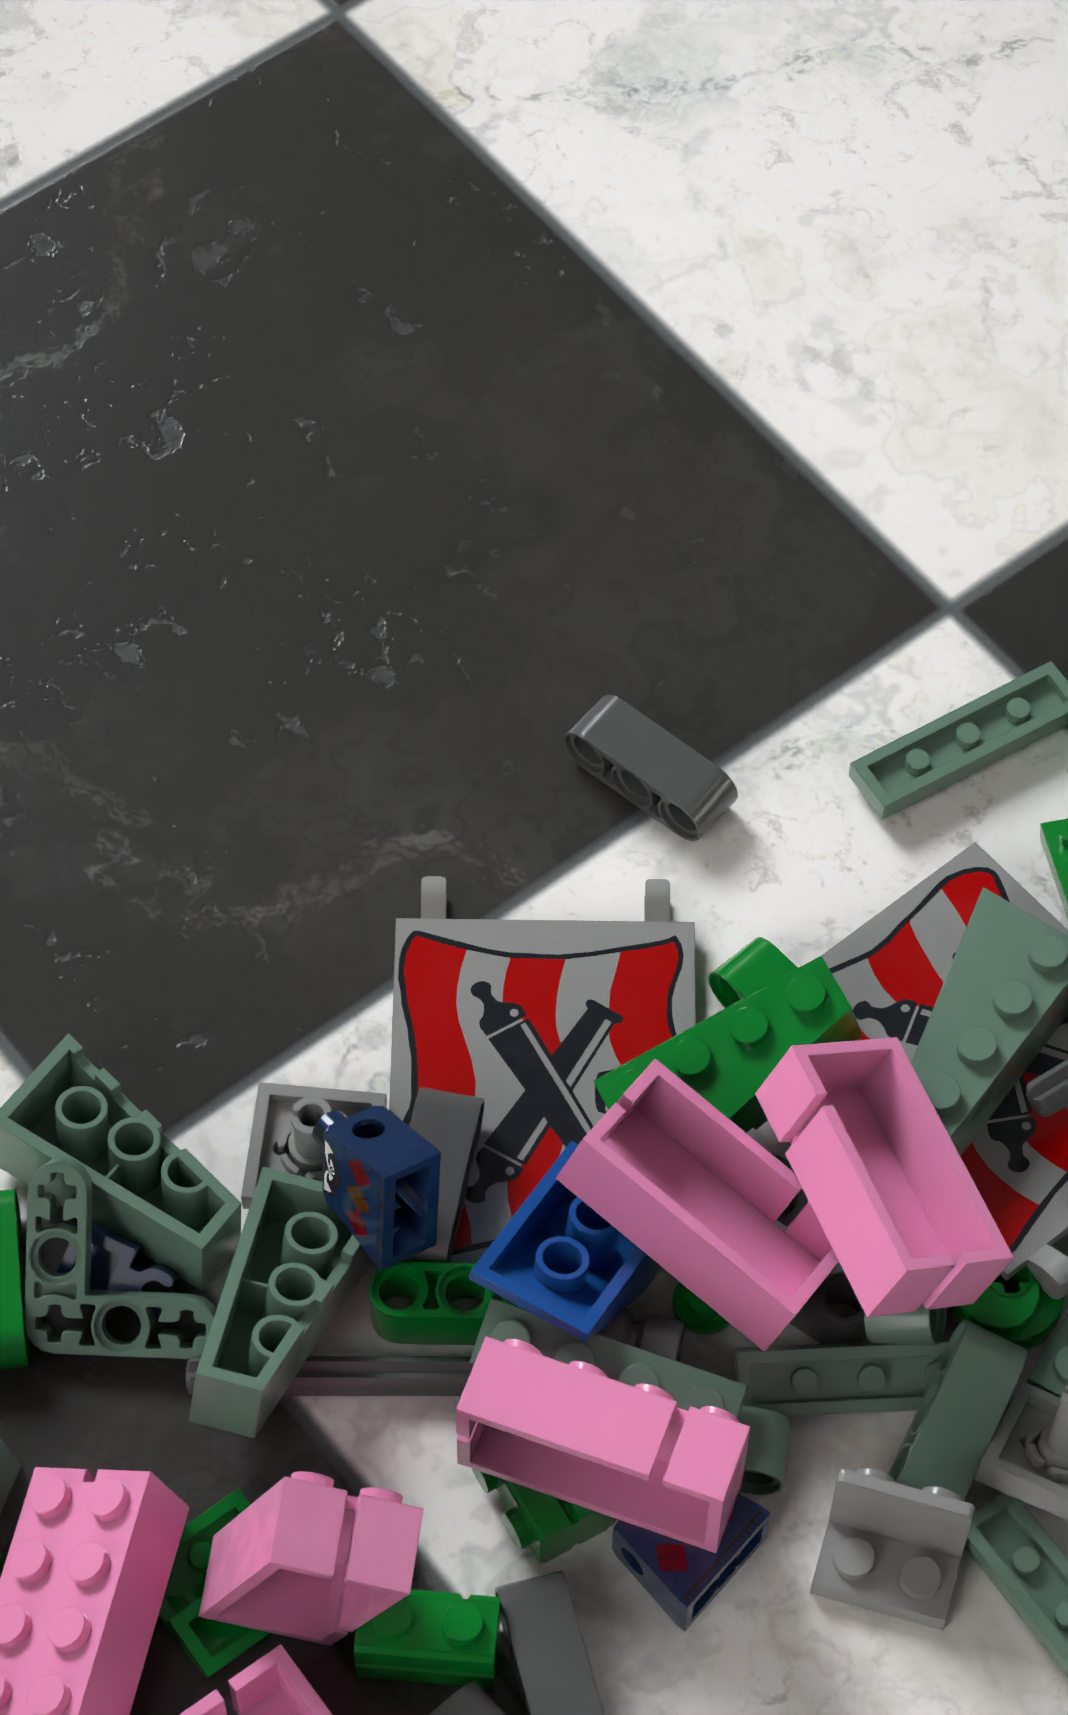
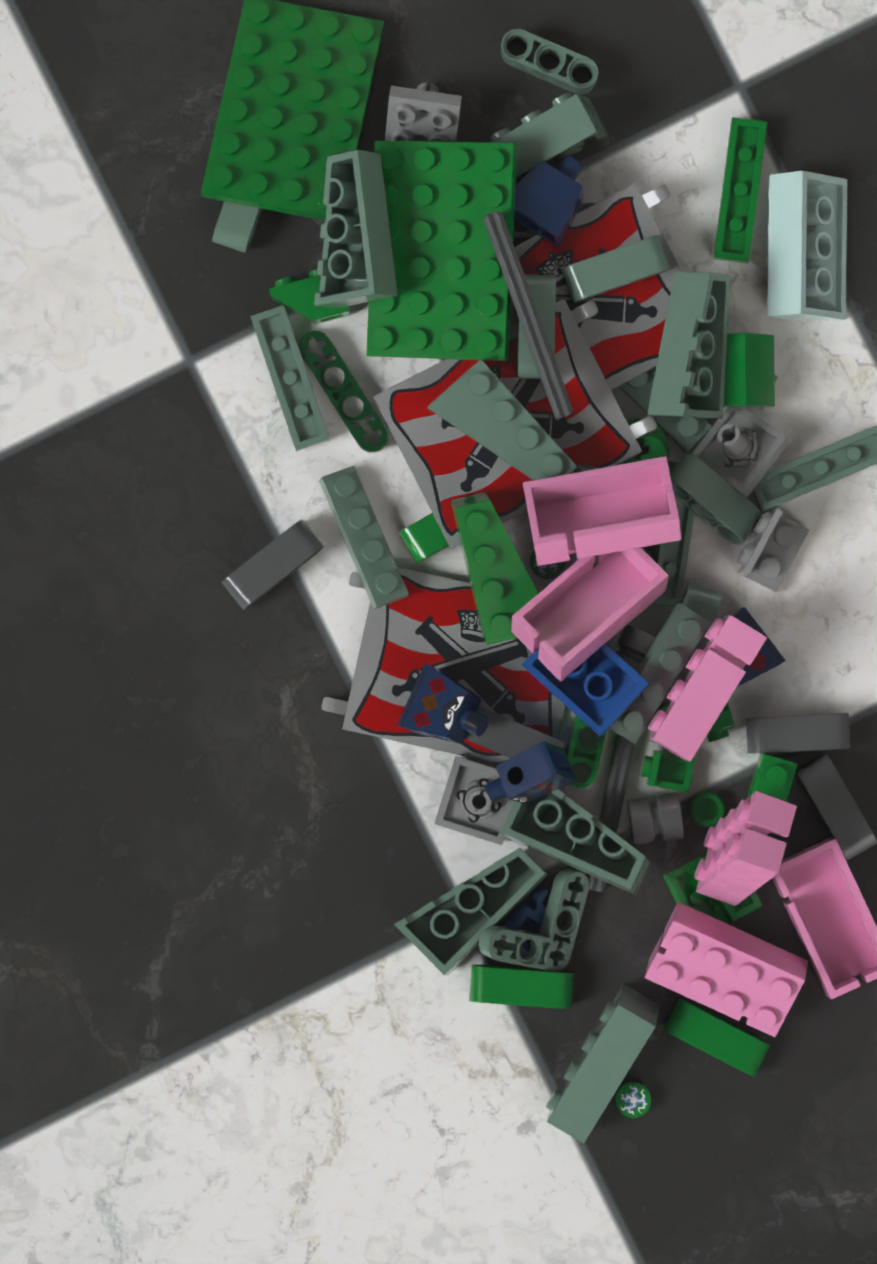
camera: 75 degrees left, 30 degrees up
(335, 1437) = (655, 819): none -> dark grey wheel
(430, 1451) = (667, 771): none -> green bracket
(468, 1039) = (442, 708): none -> dark blue torso
(730, 887) = (363, 537): none -> sand green plate
(962, 818) = (341, 393): none -> dark green beam

